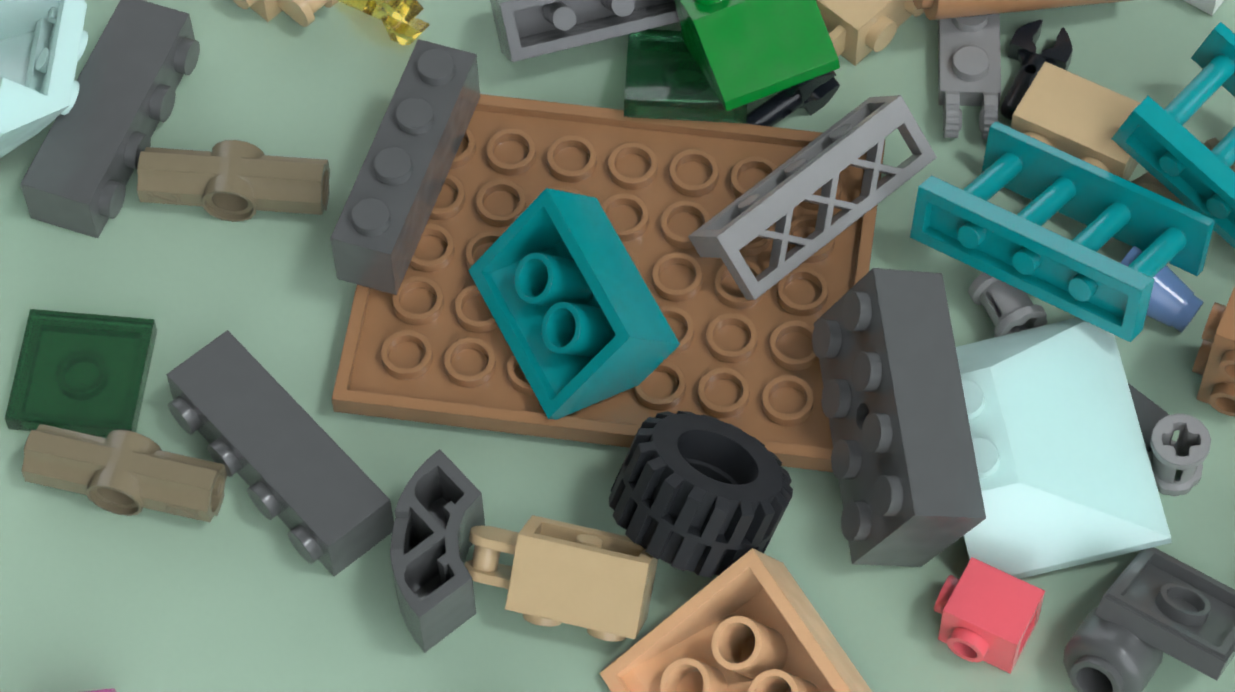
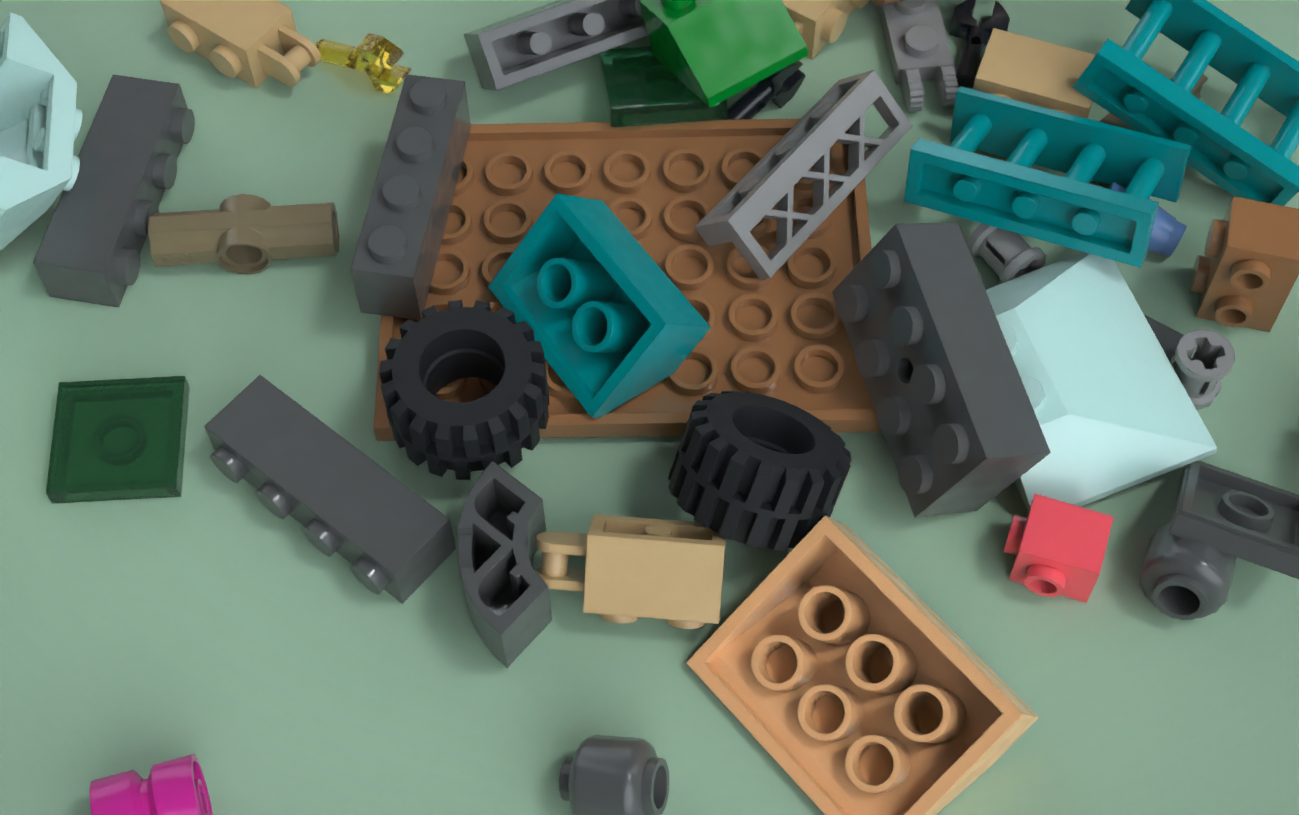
camera: 10 degrees left, 0 degrees up
(124, 472) = (174, 530): dark tan piece -> none
(417, 330) = (459, 346): none -> black tyre

